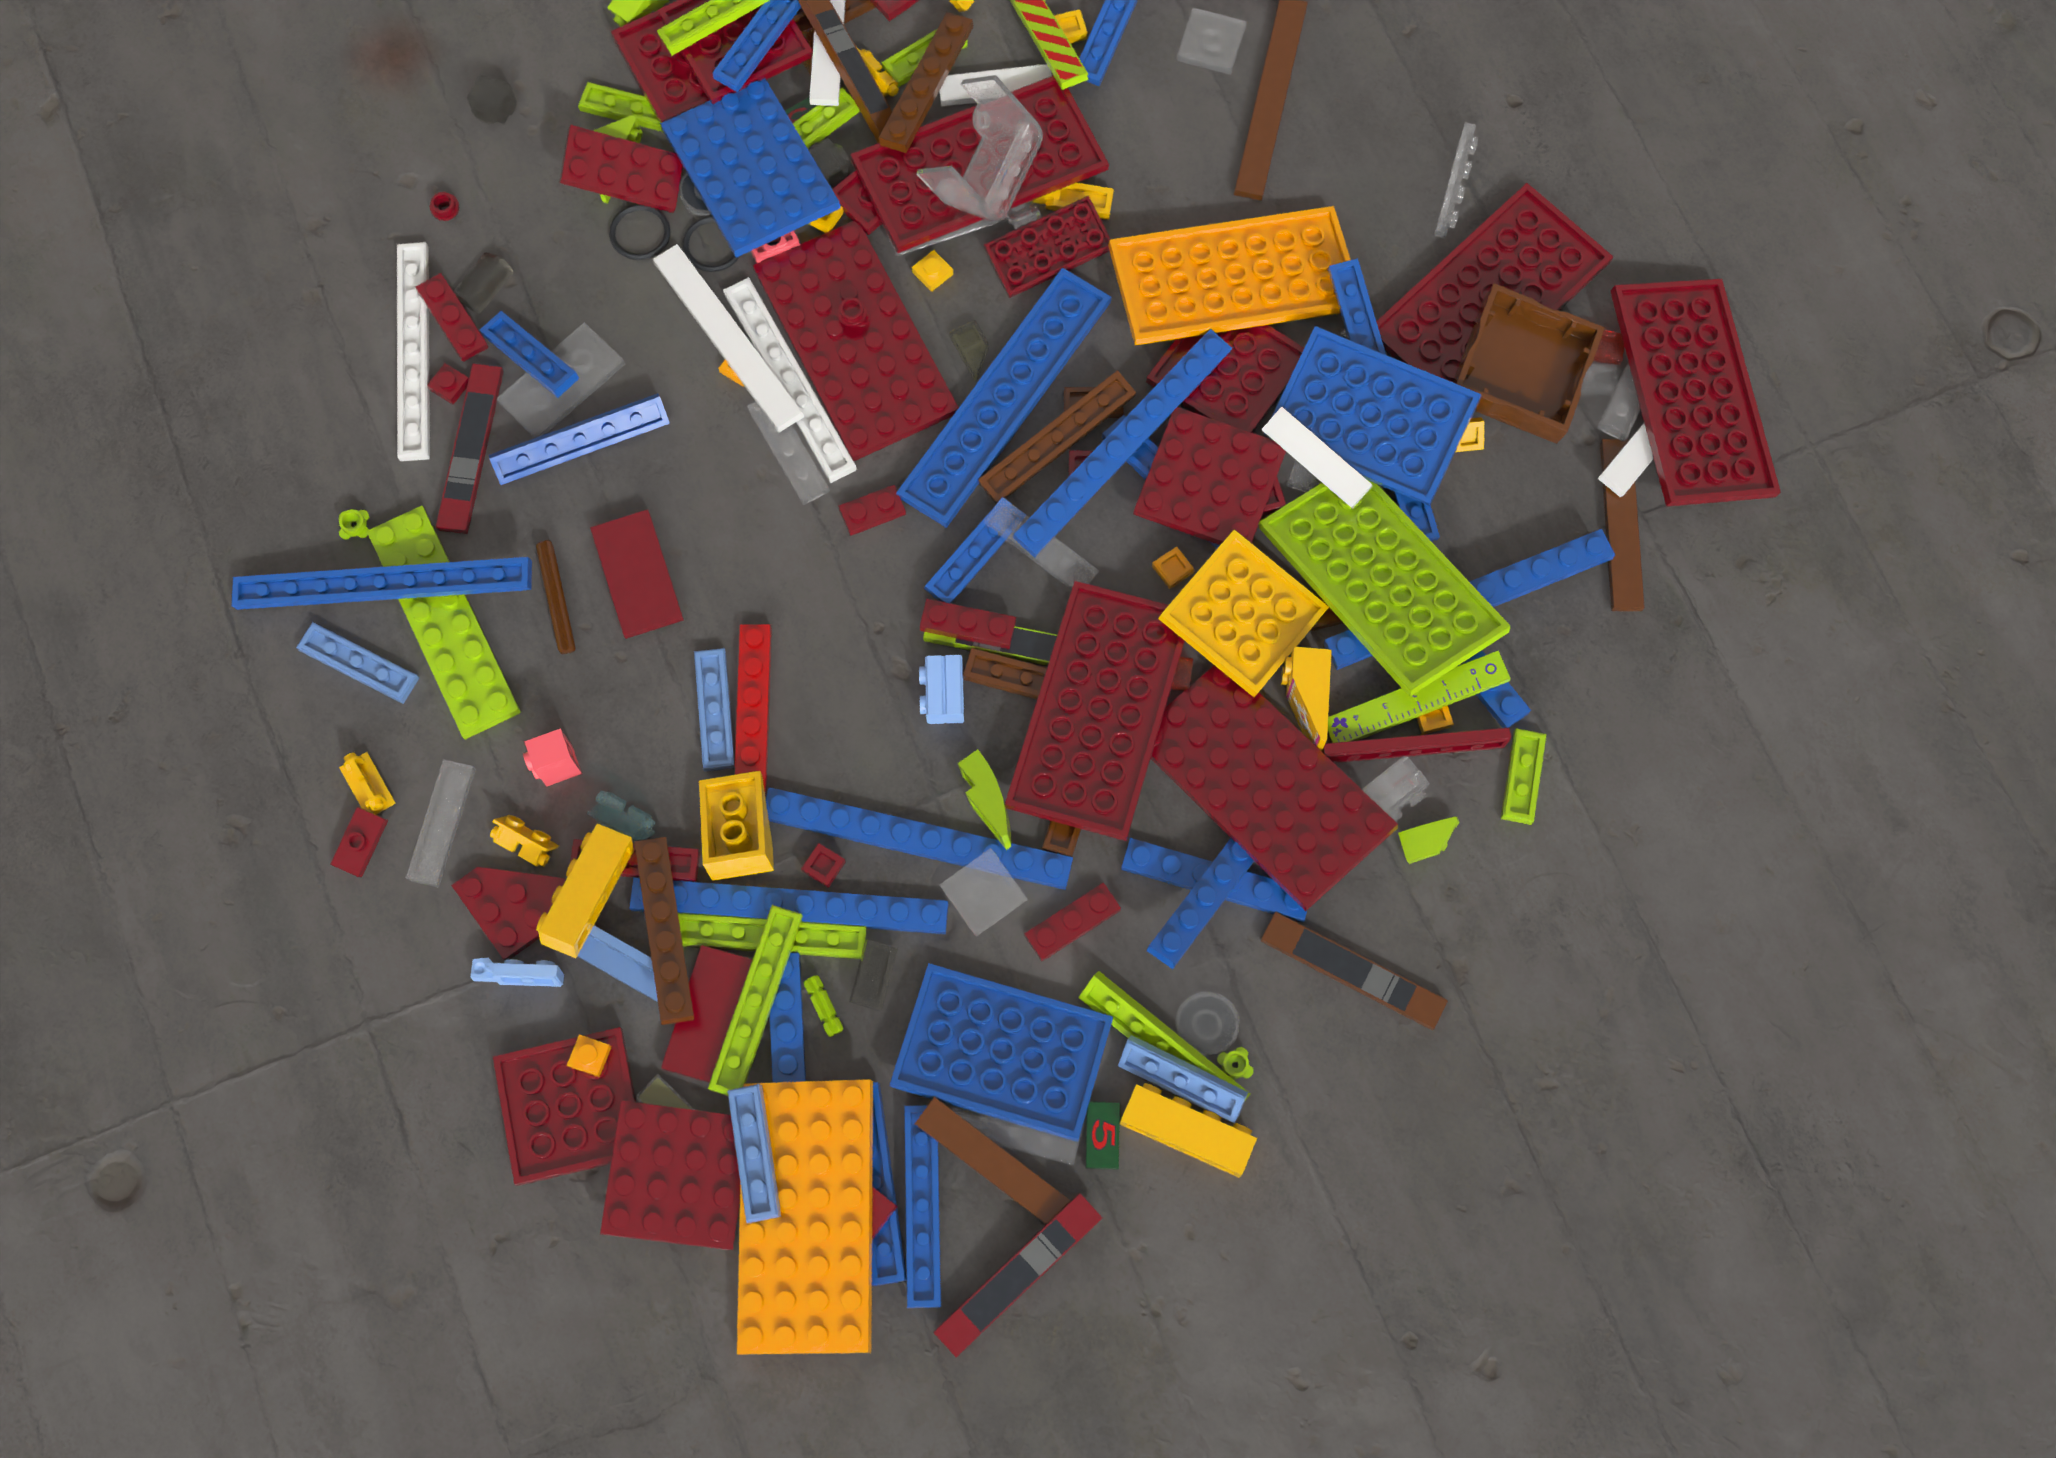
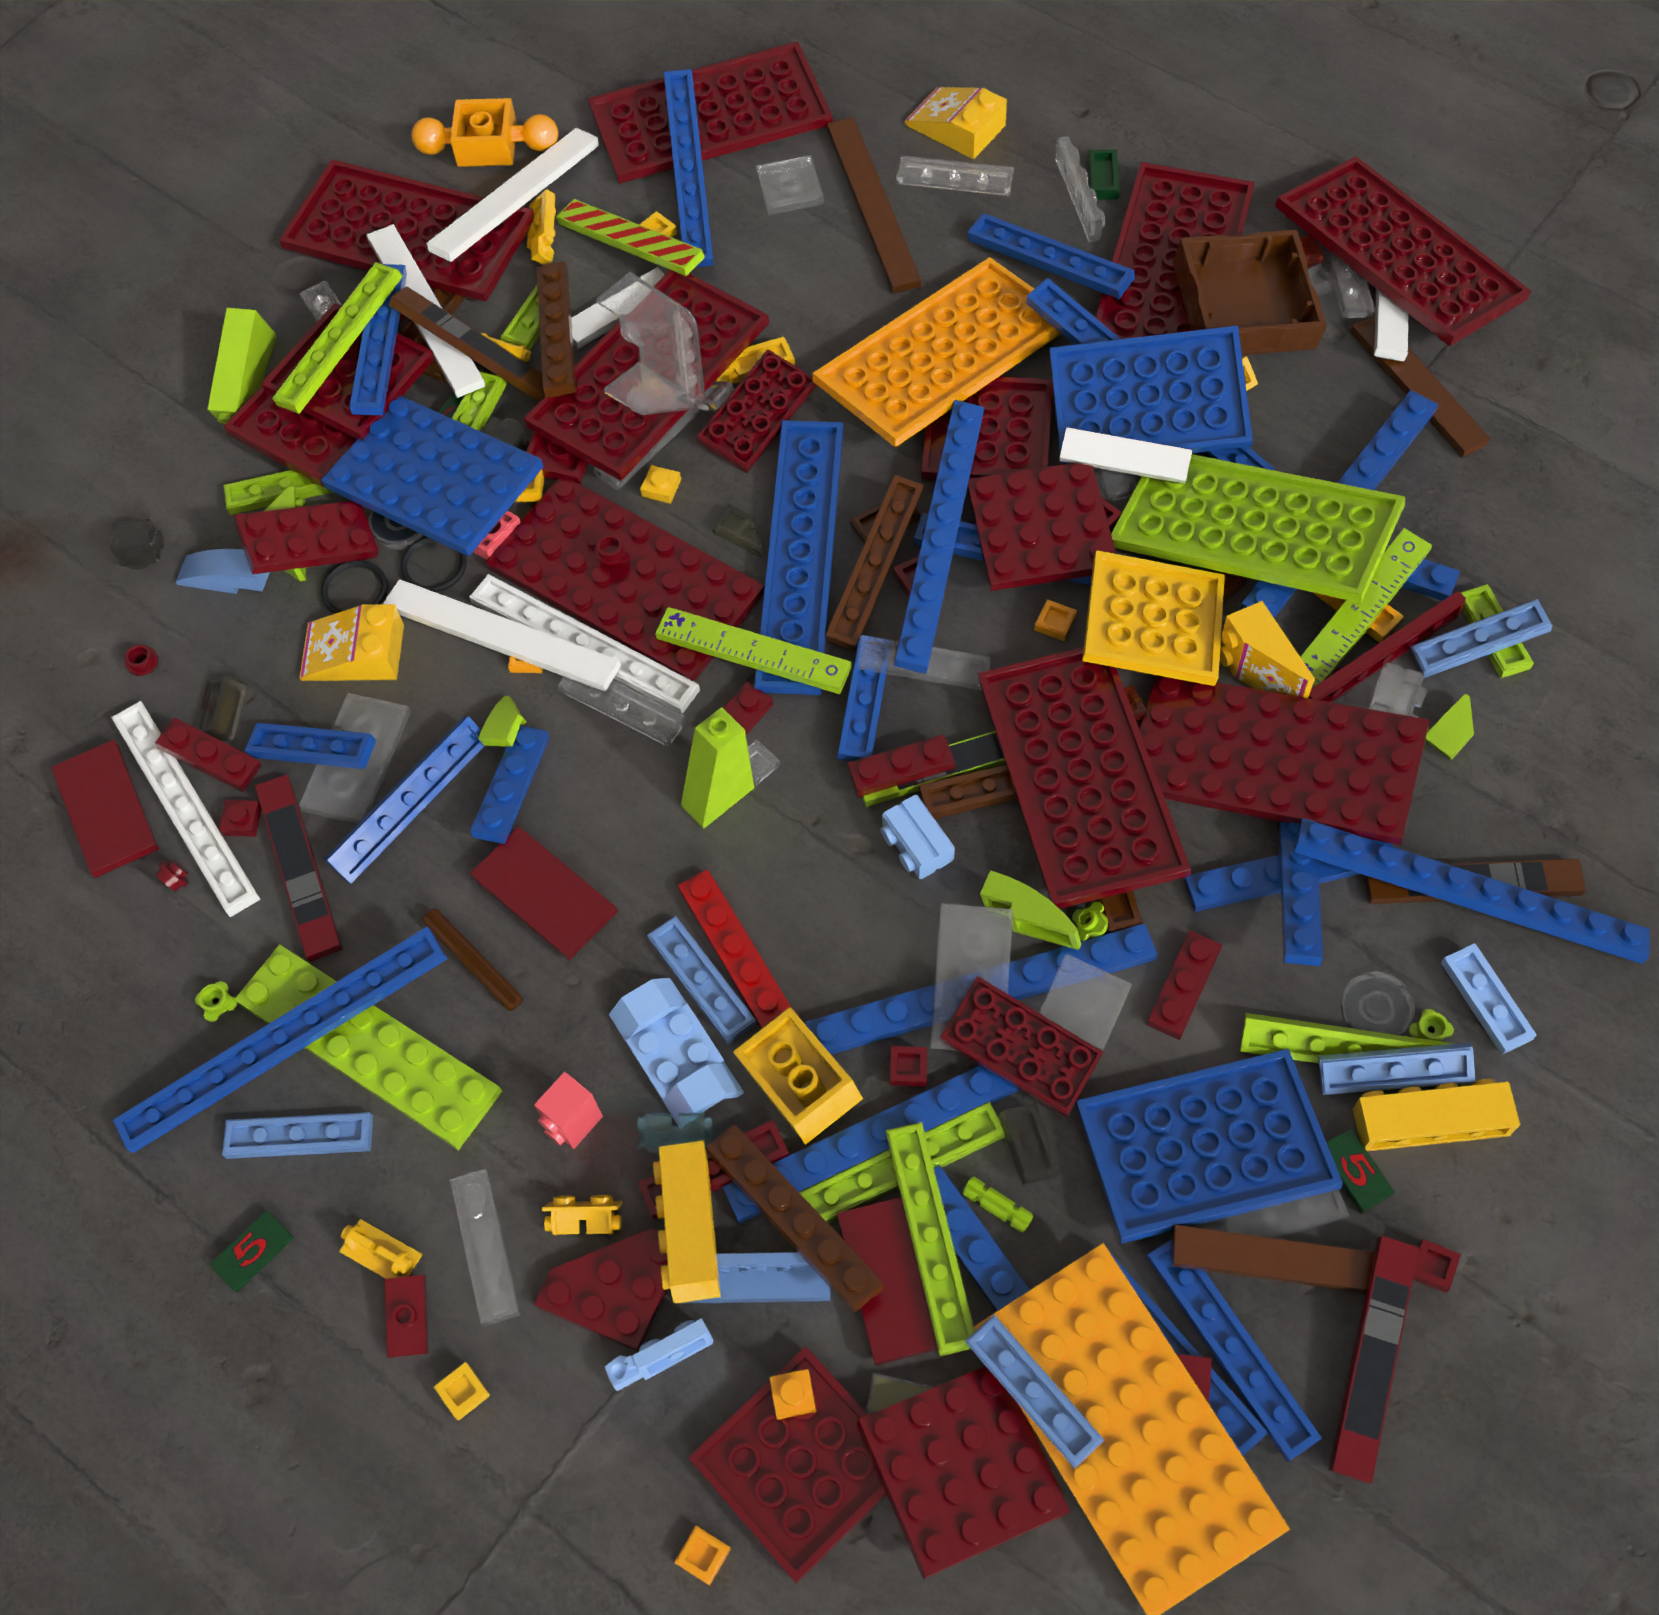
camera: 25 degrees left, 10 degrees down
(279, 731) = (251, 1251): none -> dark green tile
(353, 320) = (104, 808): none -> dark red tile
(367, 918) = (462, 1391): none -> yellow plate
(374, 404) = (172, 875): none -> dark red plate
(466, 1128) = (702, 1555): none -> light orange tile
(541, 159) = (220, 571): none -> medium blue slope
(611, 284) = (354, 645): none -> yellow slope
(662, 470) = (510, 785): none -> blue plate
(662, 752) = (673, 1048): none -> light blue piece
(685, 415) = (502, 724): none -> lime slope
(815, 550) = (717, 768): none -> lime slope
(861, 556) = (761, 761): none -> clear tile
(908, 826) = (969, 945): none -> clear tile
(911, 898) = (1021, 1046): none -> dark red tile
(912, 462) = (754, 650): none -> lime tile
(1032, 832) = (1097, 924): none -> lime plate
(1109, 1237) = (1436, 1265): none -> dark red plate
(1295, 1067) = (1488, 999): none -> light blue plate
(1340, 978) = (1473, 891): none -> blue plate
(1360, 108) = (955, 175): none -> clear tile
(1385, 234) = (1051, 255): none -> blue plate
(1399, 53) = (960, 118): none -> yellow slope
(1490, 175) = (1104, 173): none -> dark green tile
(1503, 777) = (1481, 638): none -> medium blue tile

